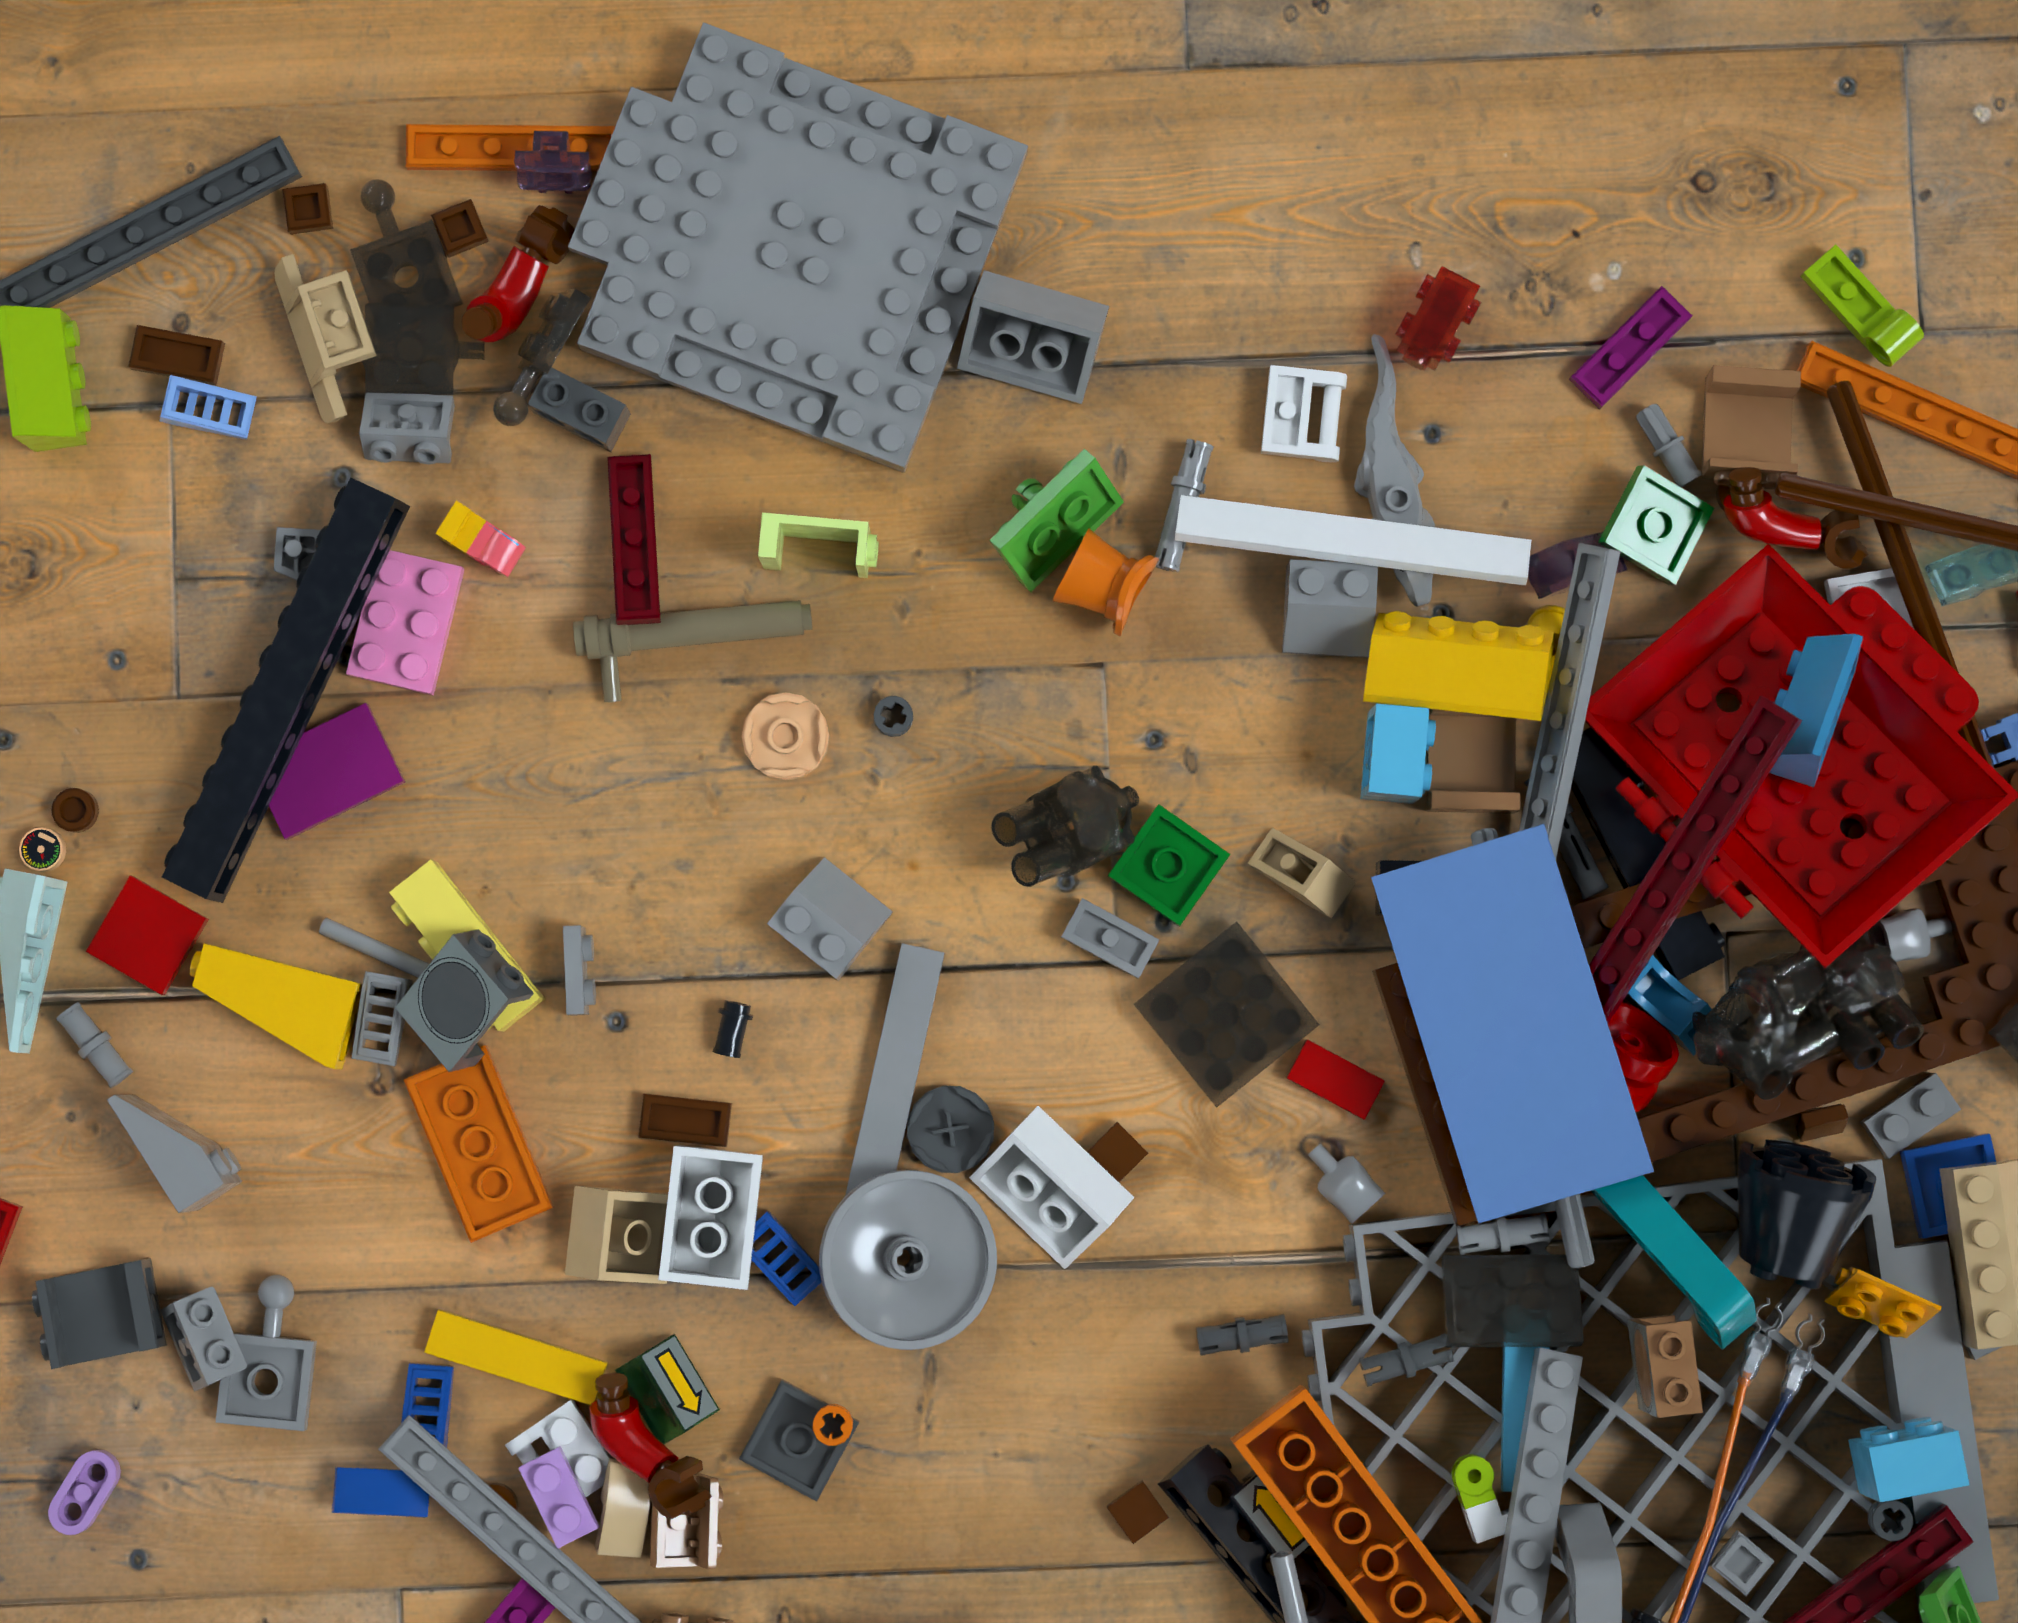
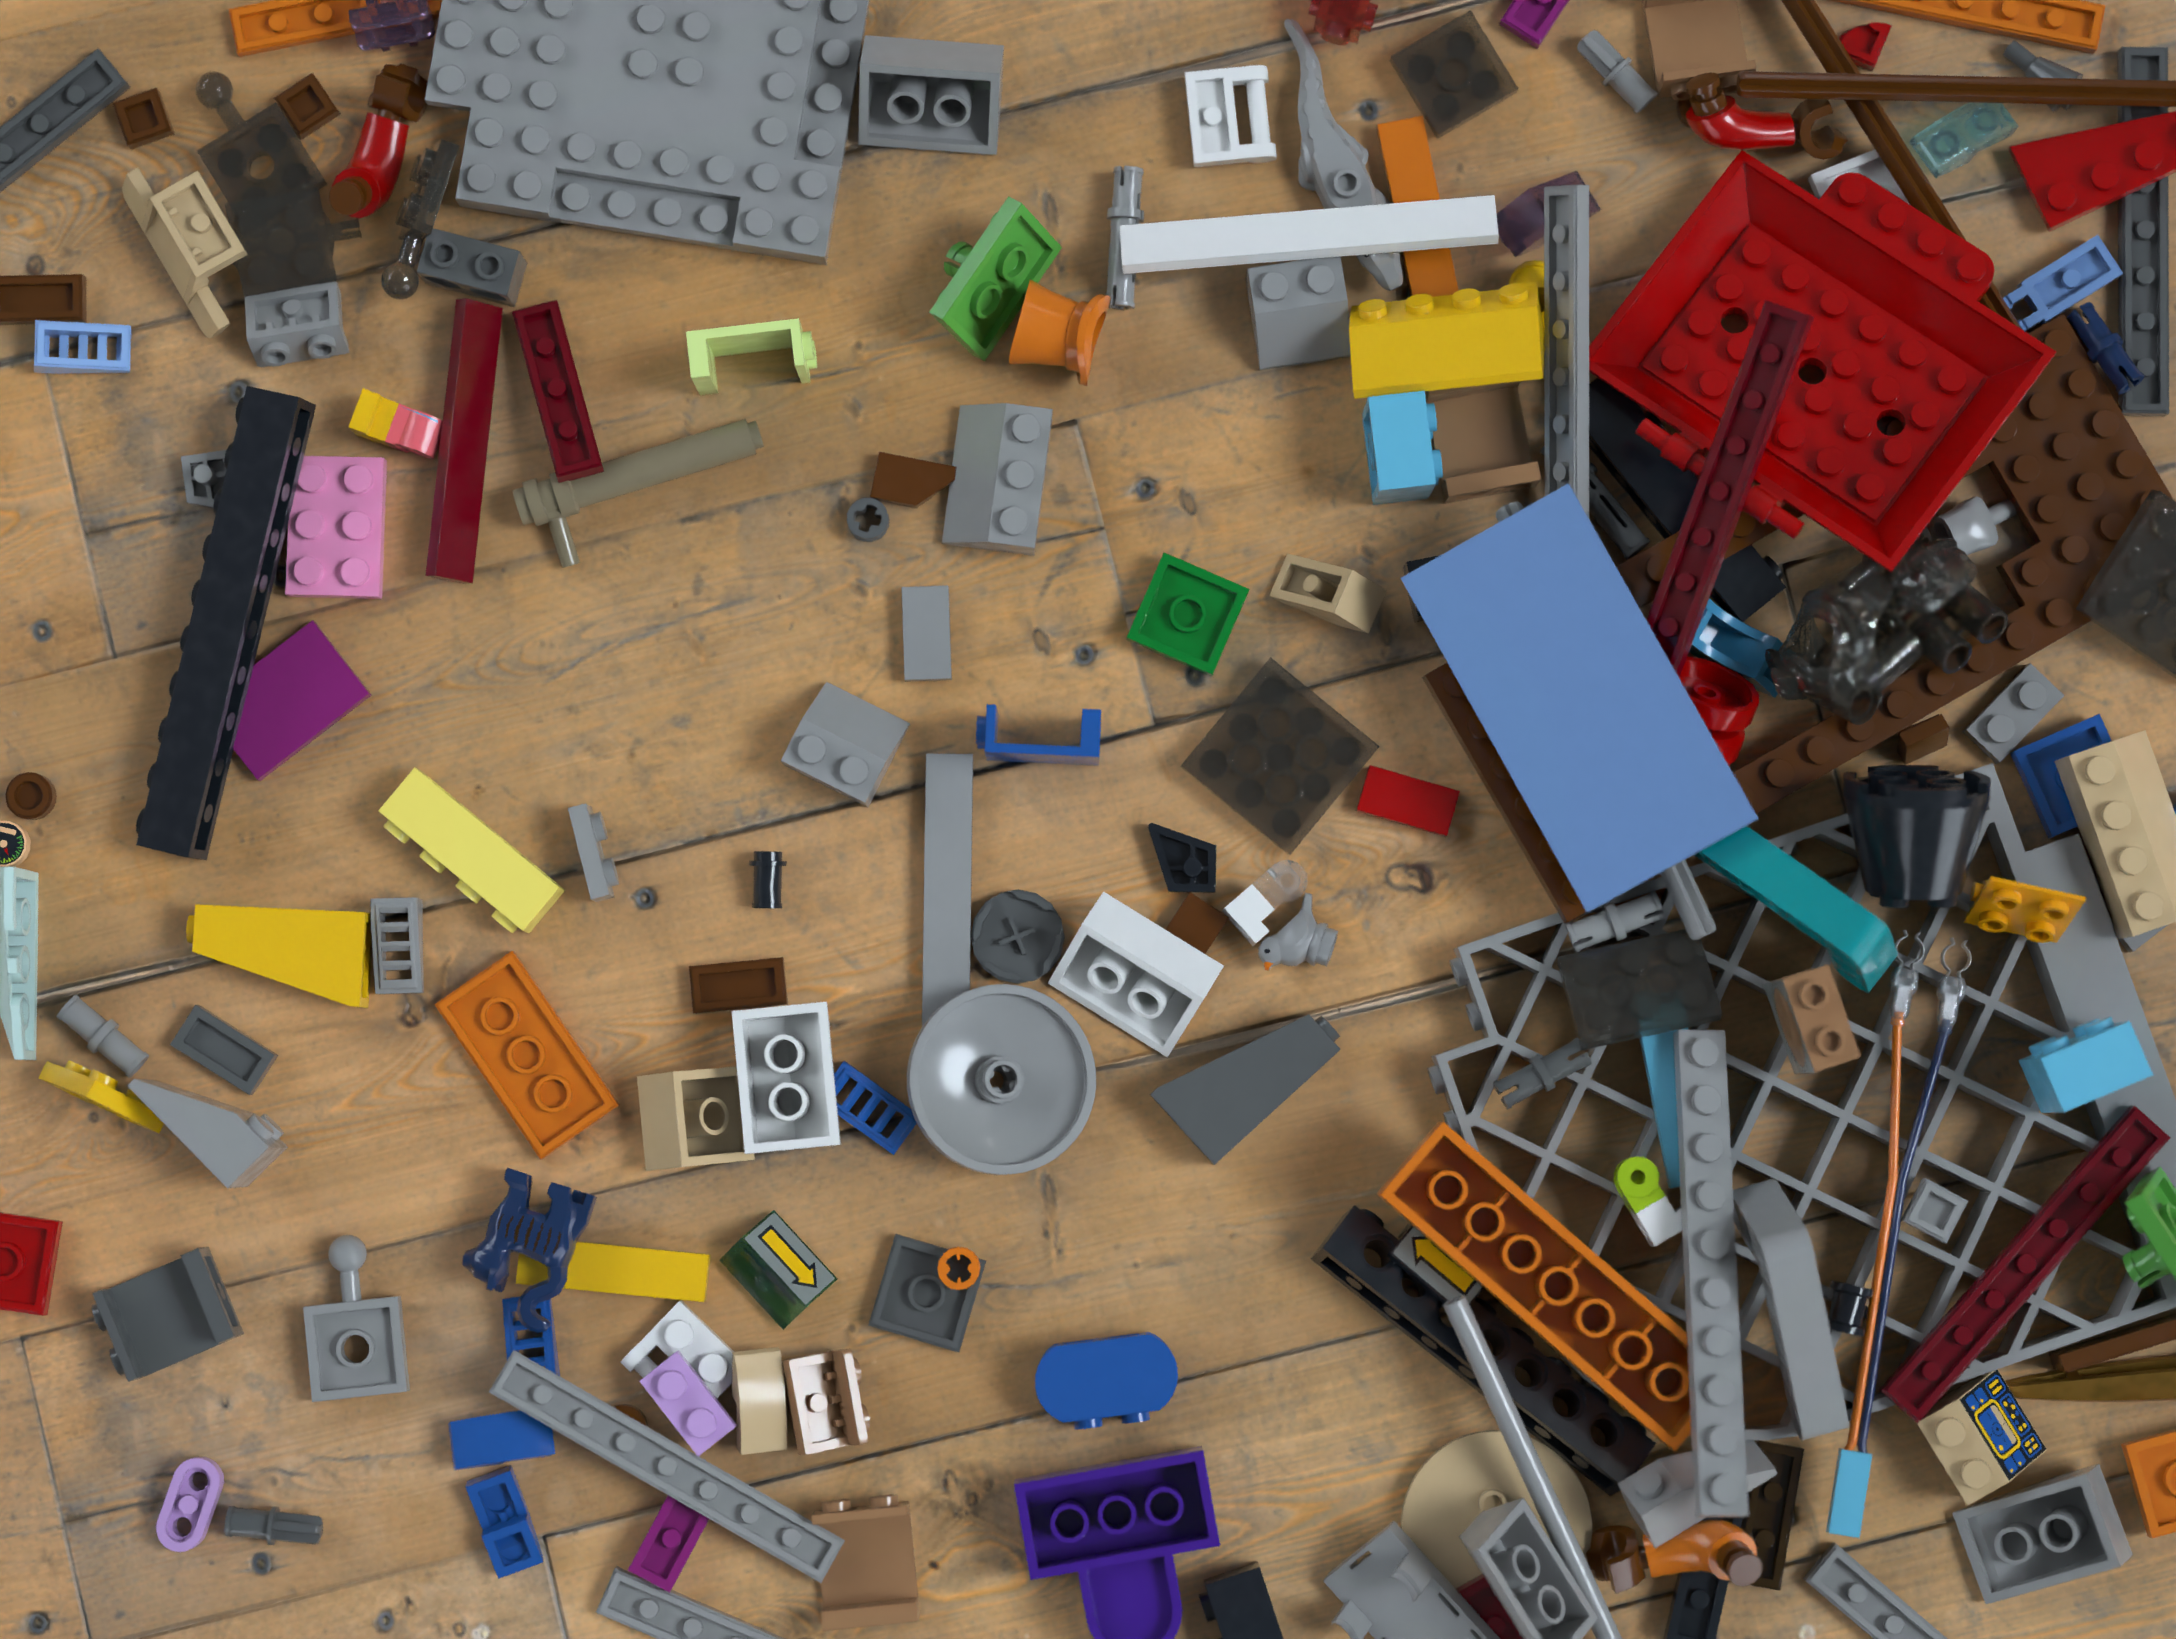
camera: 10 degrees left, 0 degrees up
(80, 1096) = (100, 1091): none -> yellow plate
(147, 935) = (134, 910): red tile -> none
(156, 1528) = (273, 1525): none -> dark grey axle
(202, 1080) = (224, 1049): none -> dark grey tile
(203, 1338) = (281, 1317): light grey bracket -> none
(368, 1569) = (504, 1521): none -> blue slope
(372, 947) = (384, 876): light grey bar -> none
(454, 1314) = (541, 1236): none -> dark blue animal
(461, 998) = (477, 904): dark grey panel -> none
(538, 567) = (464, 441): none -> dark red tile
(626, 1438) = (747, 1328): piece -> none
(785, 736) = (759, 564): light nougat tile -> none
(925, 832) = (926, 633): none -> light grey tile
(939, 687) = (909, 480): none -> reddish brown tile
(947, 1555) = (1106, 1379): none -> blue brick
(1020, 702) = (998, 477): none -> light grey slope
(1054, 966) = (1084, 755): none -> blue panel
(1099, 818) = (1082, 562): clear smoke helmet -> none
(1110, 938) = (1143, 703): light grey plate -> none
(1118, 1091) = (1184, 860): none -> black piece
(1127, 1313) = (1239, 1090): none -> dark grey slope
(1137, 1512) = (1296, 1292): reddish brown tile -> none
(1198, 1133) = (1277, 886): none -> leg
(1208, 1188) = (1299, 941): none -> light grey animal
(1242, 1334) = (1366, 1086): dark grey pin -> none
(1345, 1183) = (1441, 906): light grey piece -> none
(1458, 509) = (1413, 179): none -> orange tile
(1517, 417) = (1453, 74): none -> clear smoke plate
(1656, 525) = (1621, 154): plate -> none
(1817, 697) = (1825, 289): dark azure slope -> none
(1903, 467) = (1866, 43): none -> red tile
(1904, 1521) = (2093, 1132): dark grey bush -> none

